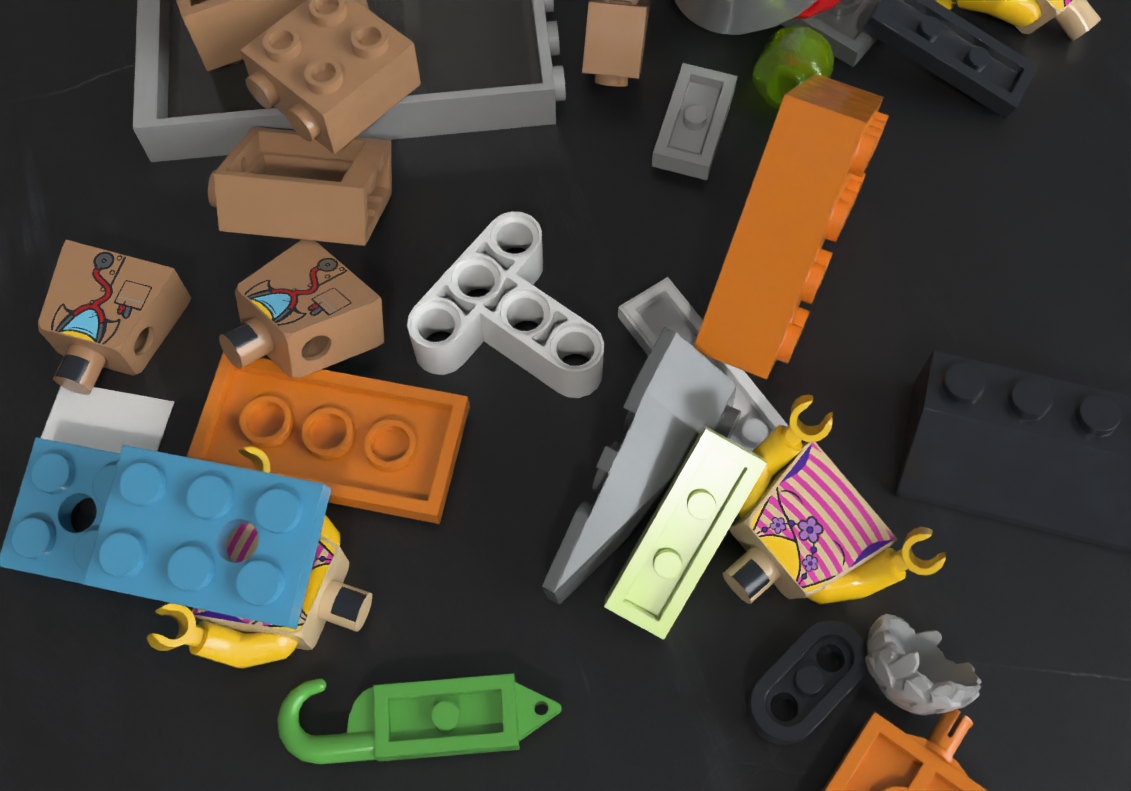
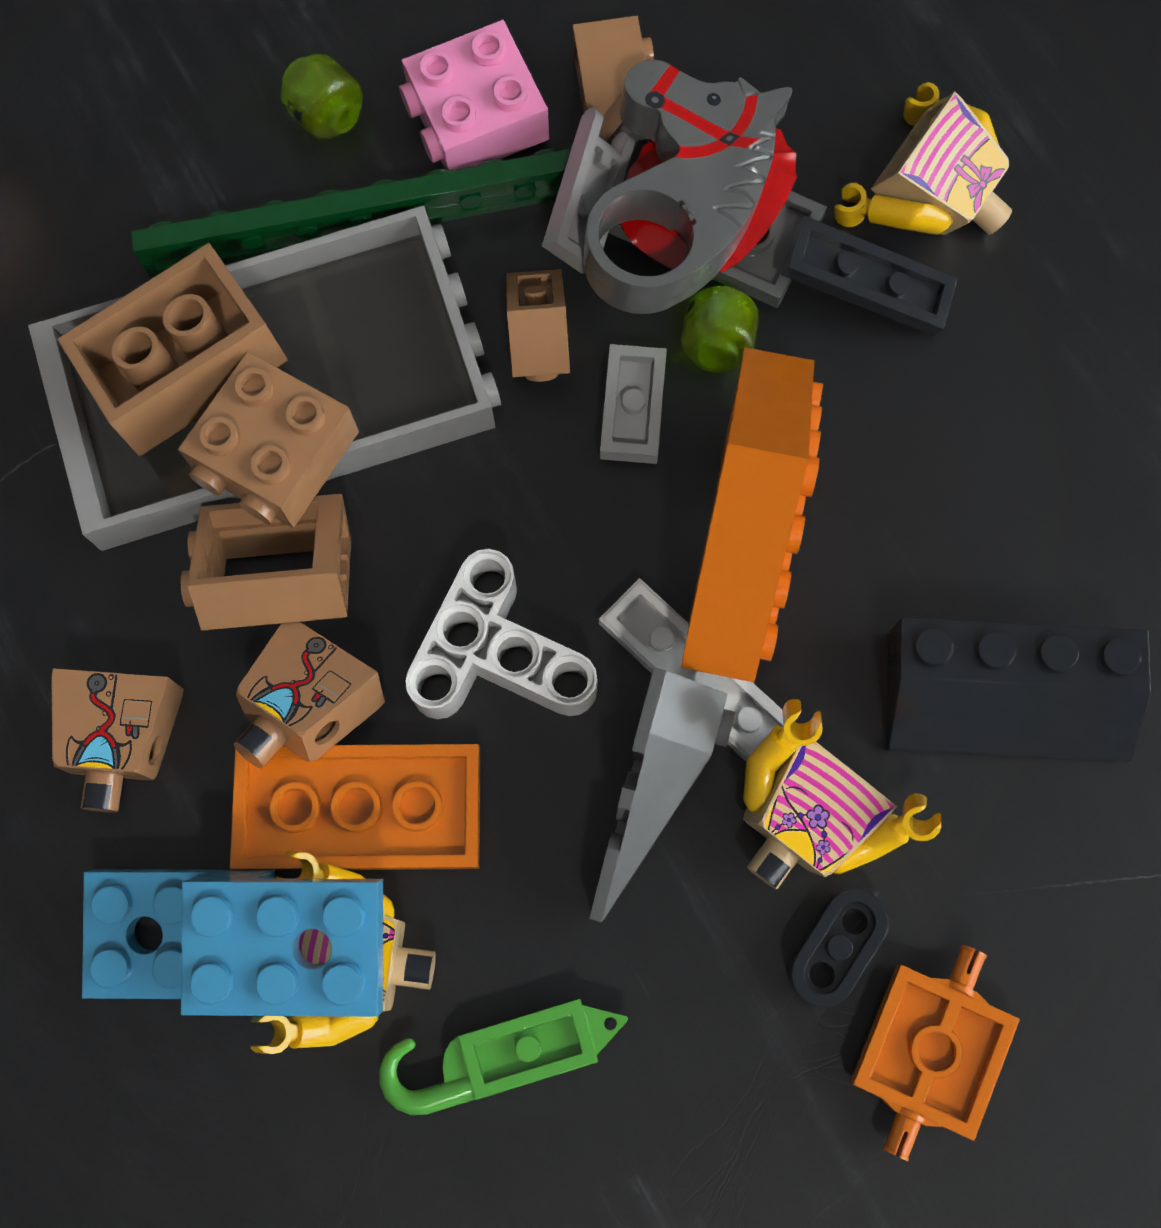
camera: 10 degrees left, 10 degrees up
(107, 420) = (141, 834): white sticker -> none
(684, 532) = (706, 839): yellowish green plate -> none
(915, 671) = (931, 919): light grey hair -> none

